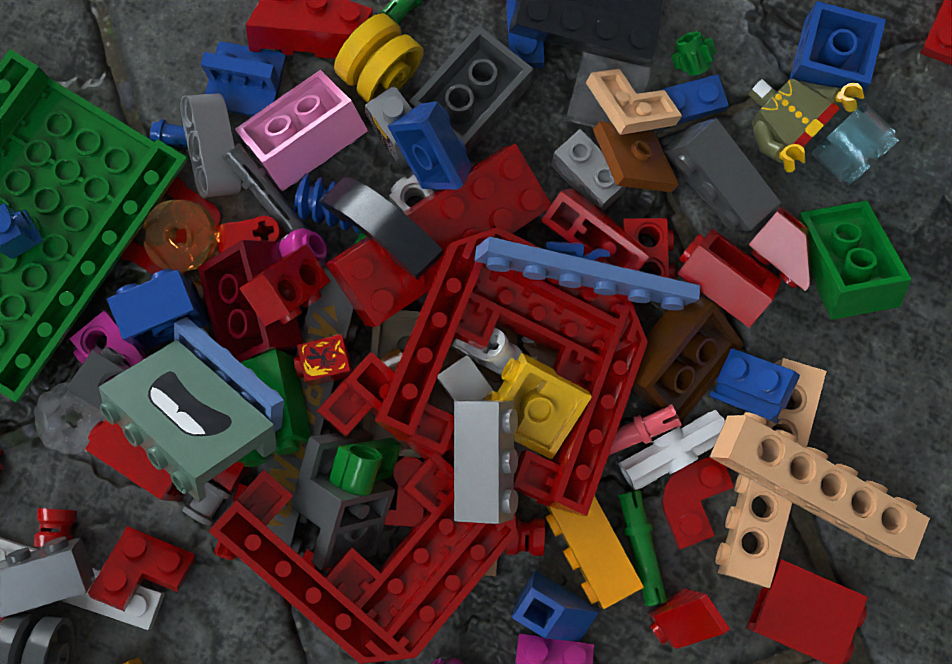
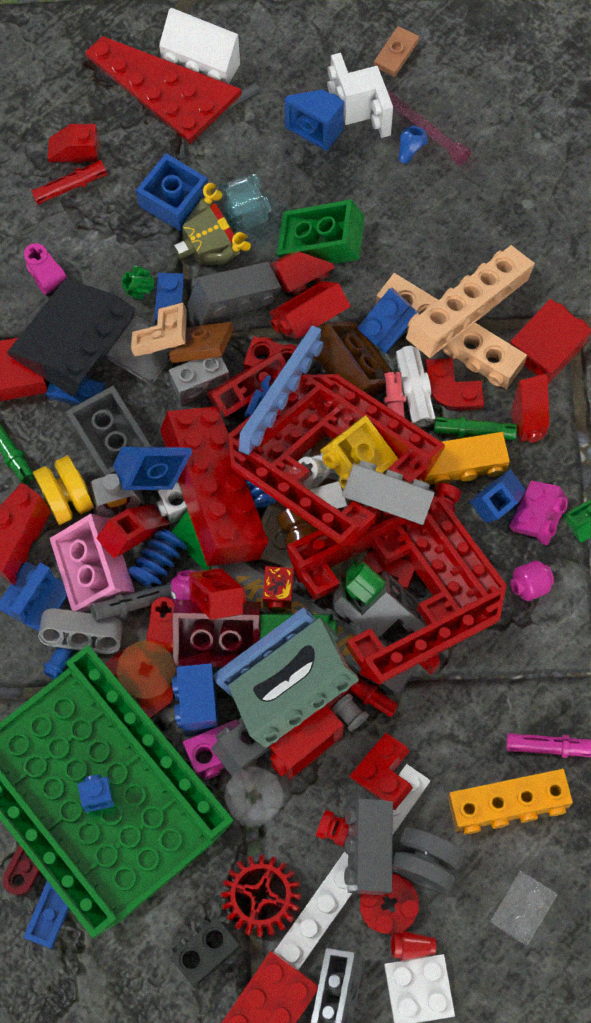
camera: 70 degrees left, 10 degrees down
(351, 156) = (131, 529): none -> red slope
(384, 224) = (193, 512): black slope -> none

